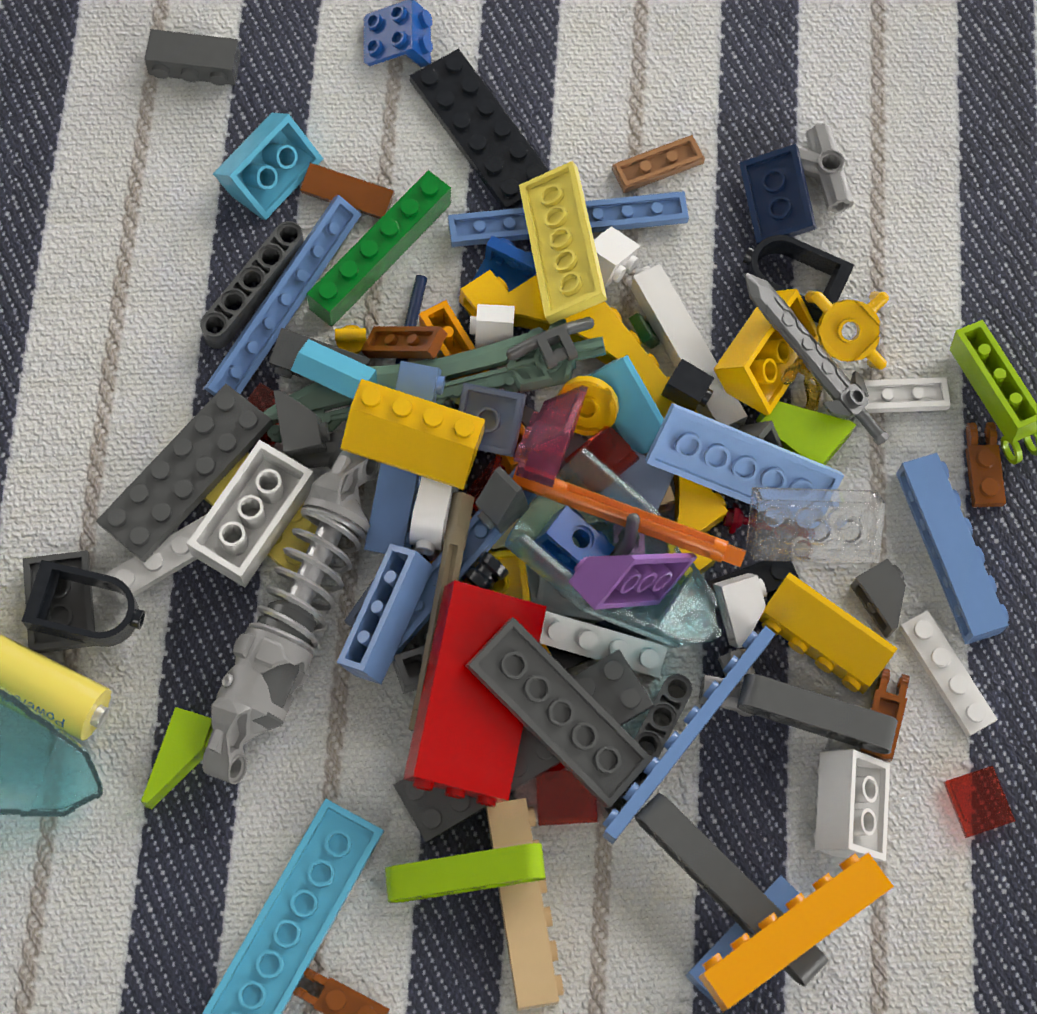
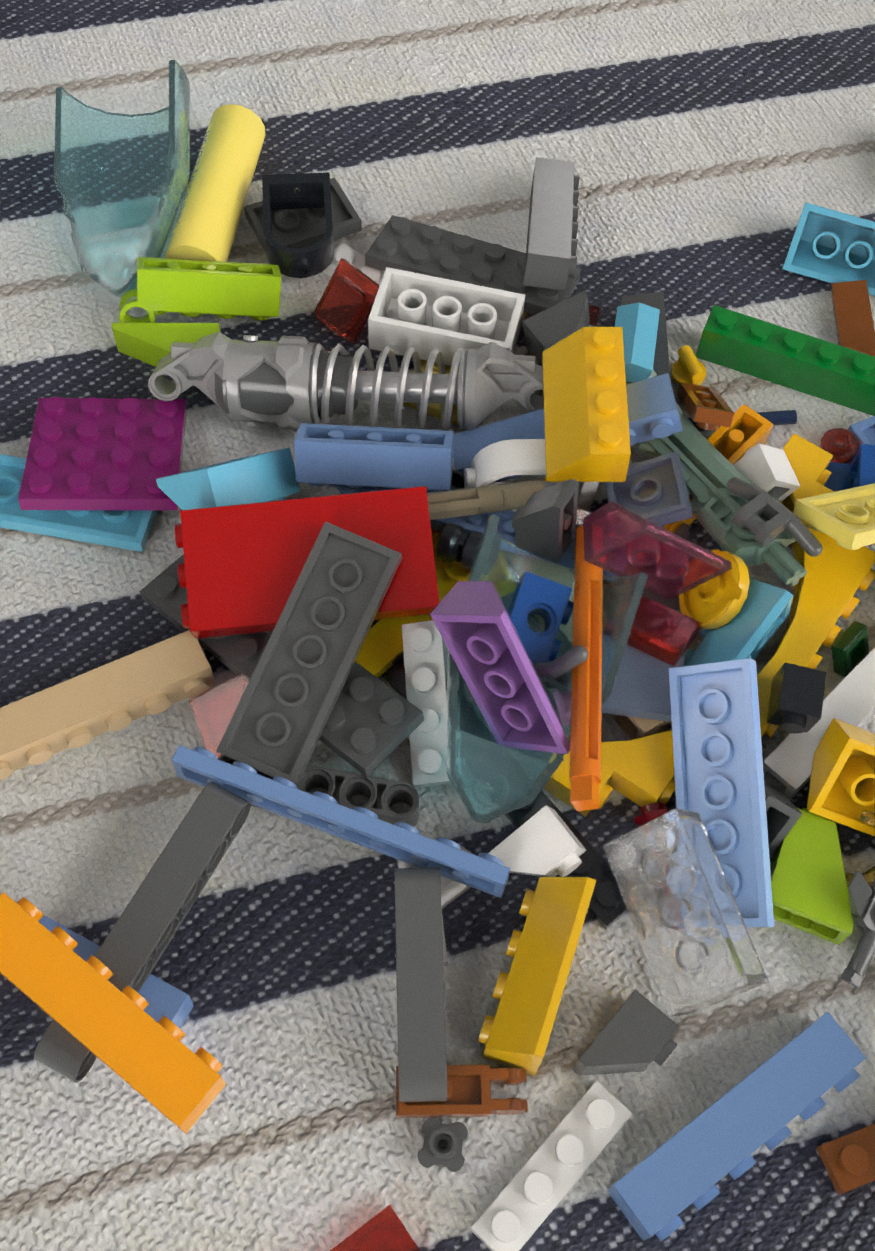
camera: 75 degrees right, 10 degrees down
(130, 713) = (203, 288): none -> lime hinge
(170, 389) = (552, 225): none -> brick
(183, 590) = (347, 301): none -> clear red piece
(247, 297) = (704, 271): dark grey beam -> none
(281, 840) = (102, 454): none -> magenta plate
(285, 297) = (697, 299): medium blue plate -> none
(359, 739) = (234, 482): none -> medium azure slope
(462, 265) = (840, 453): none -> clear red plate
(465, 873) = (103, 629): lime beam -> none
(852, 804) = (314, 1078): white slope -> none
(919, 745) = (432, 1154): none -> dark grey plate

